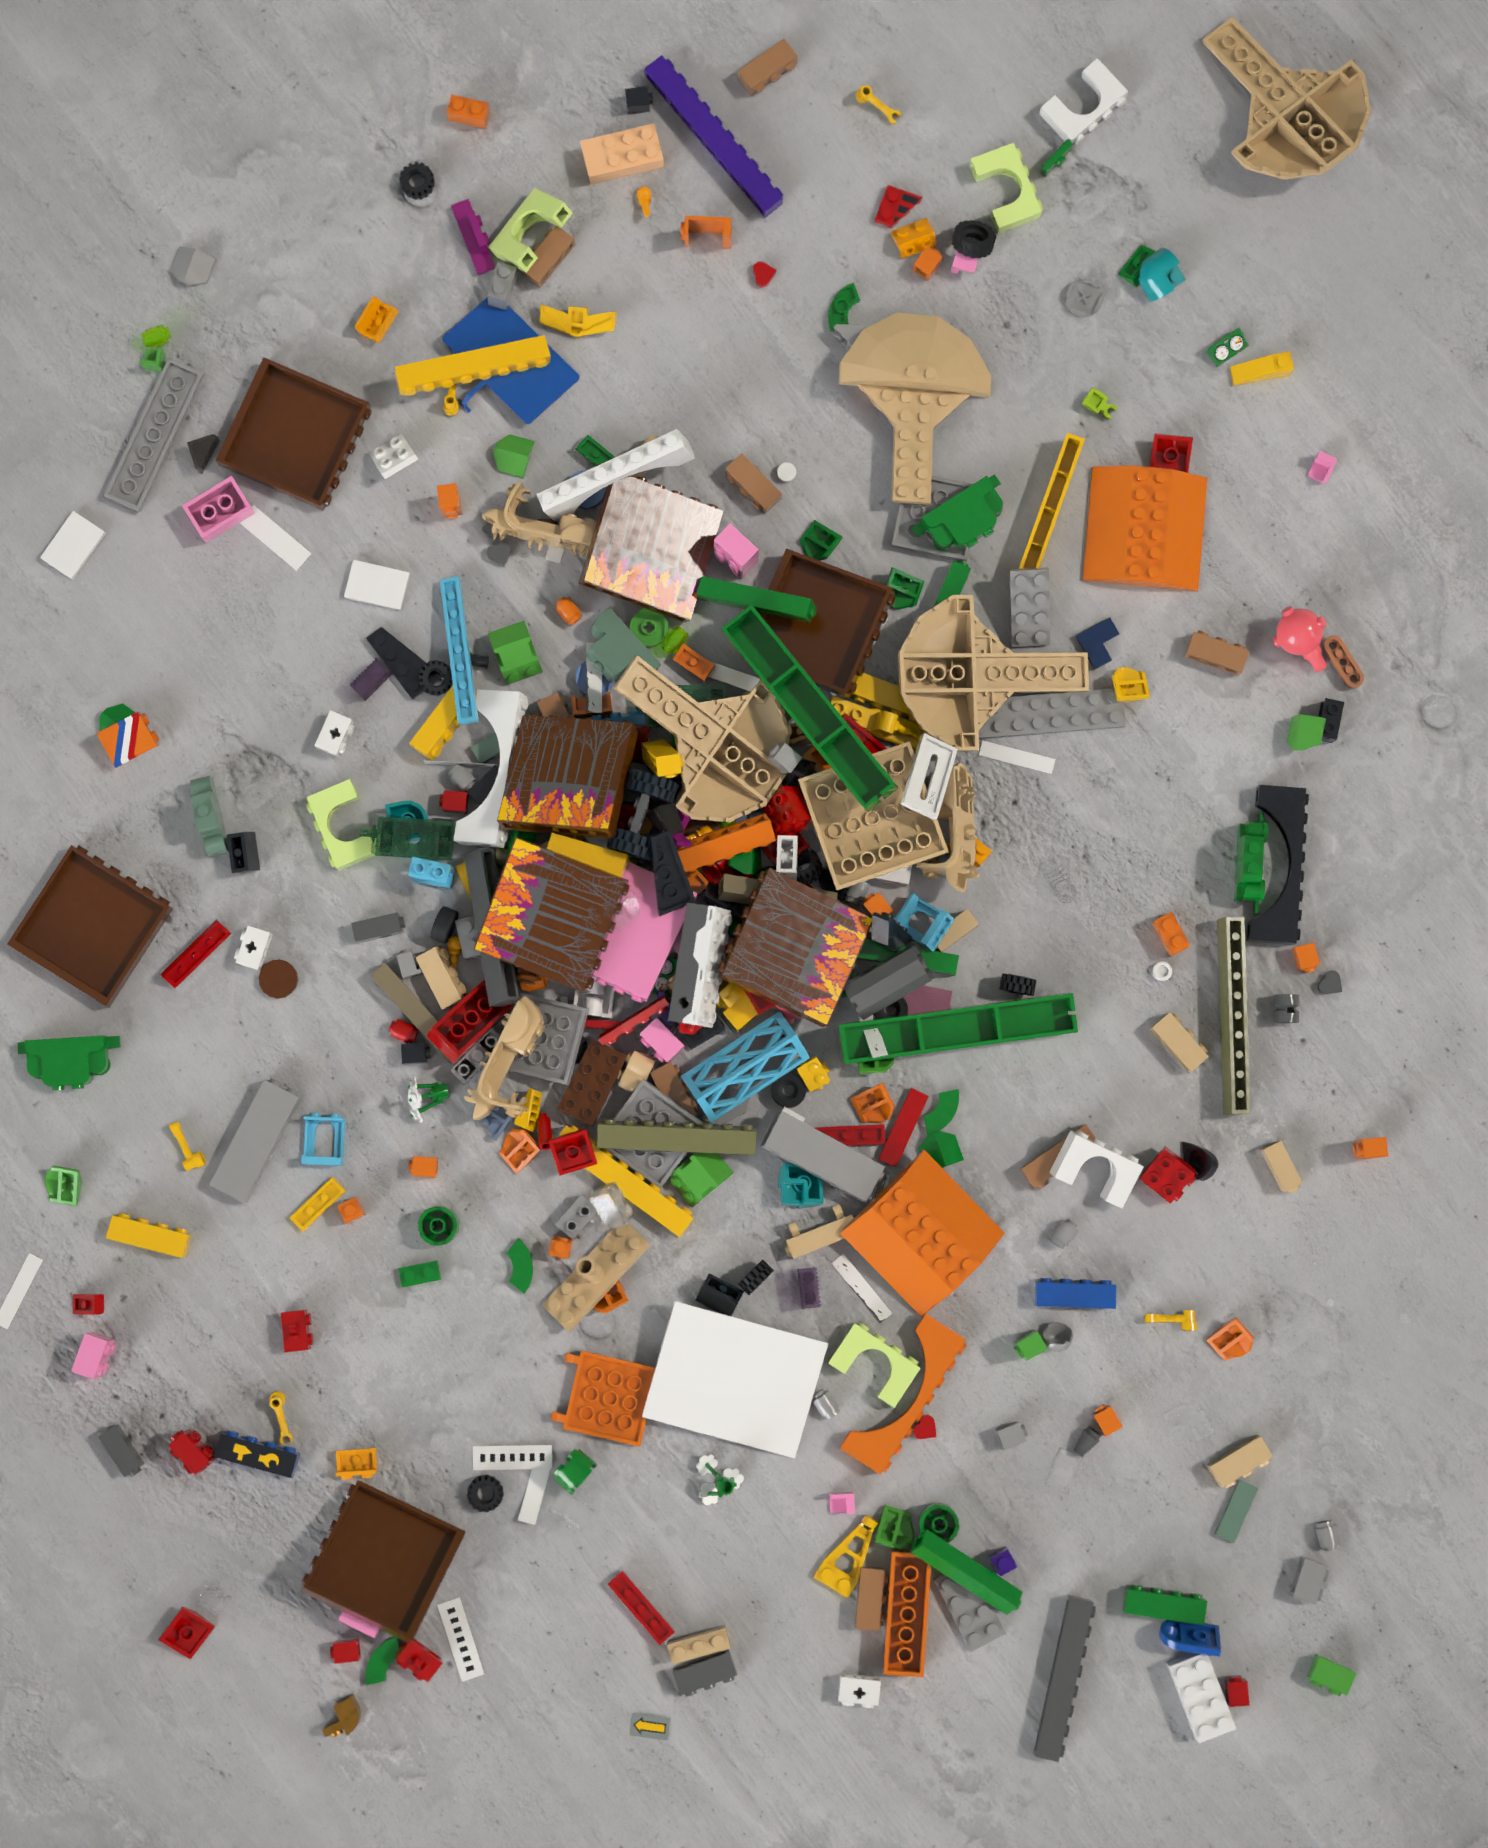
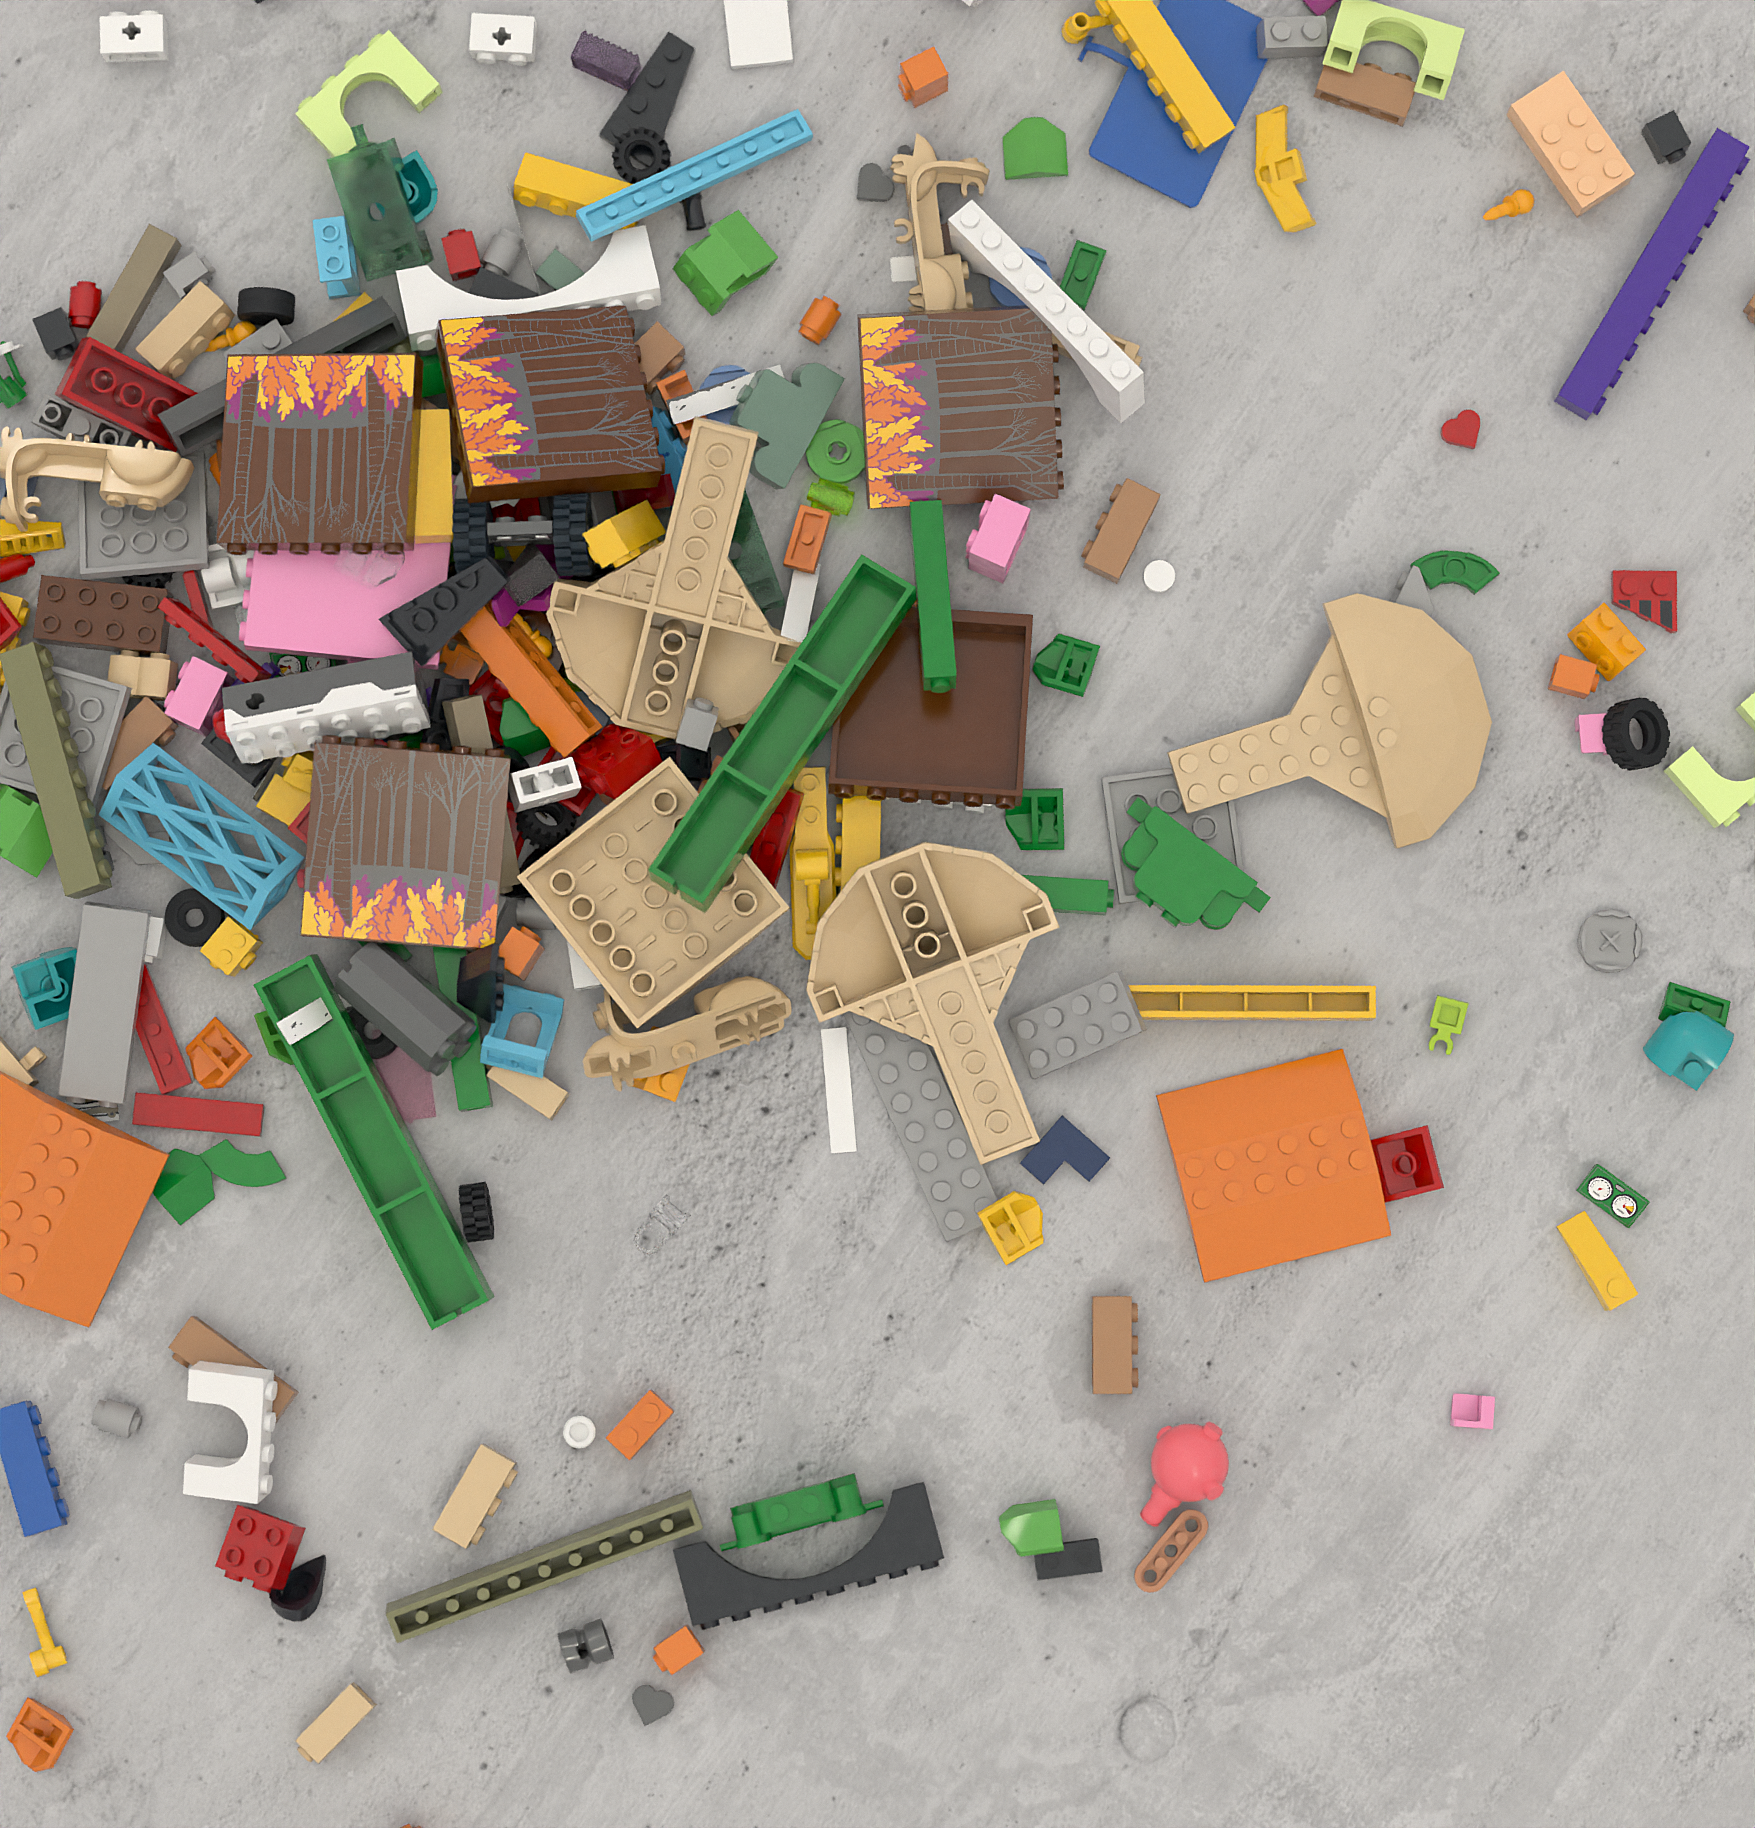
camera: 75 degrees right, 0 degrees up
(278, 979) = (101, 91): reddish brown tile -> none
(378, 927) = (229, 210): dark grey brick -> none
(707, 224) = (1511, 339): orange panel -> none
(945, 759) = (787, 973): white piece -> none

